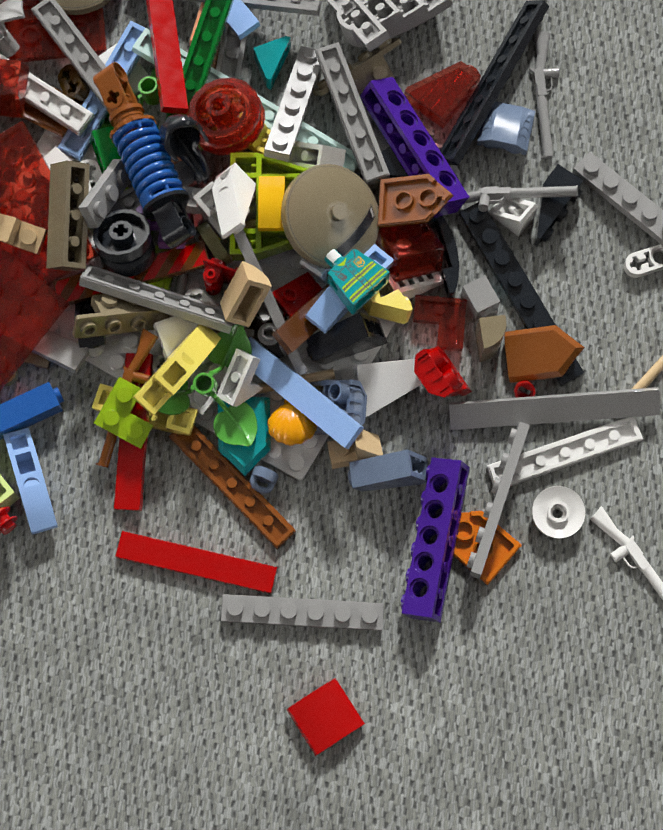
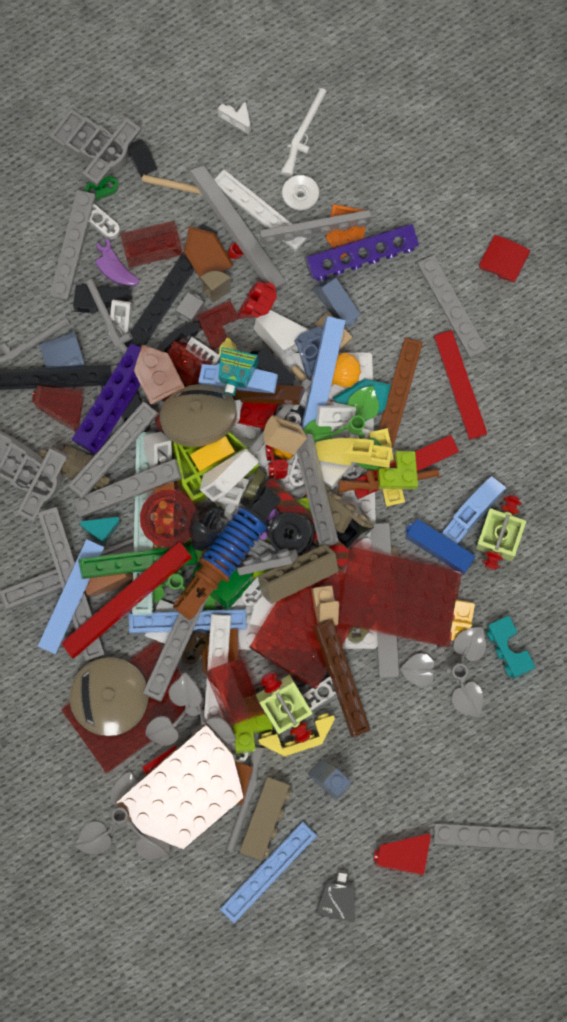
camera: 120 degrees left, 0 degrees up
(264, 475) = (383, 375): sand blue tile -> none
(586, 241) = (113, 268): none -> medium lavender piece
(592, 298) = (151, 244): none -> clear red slope

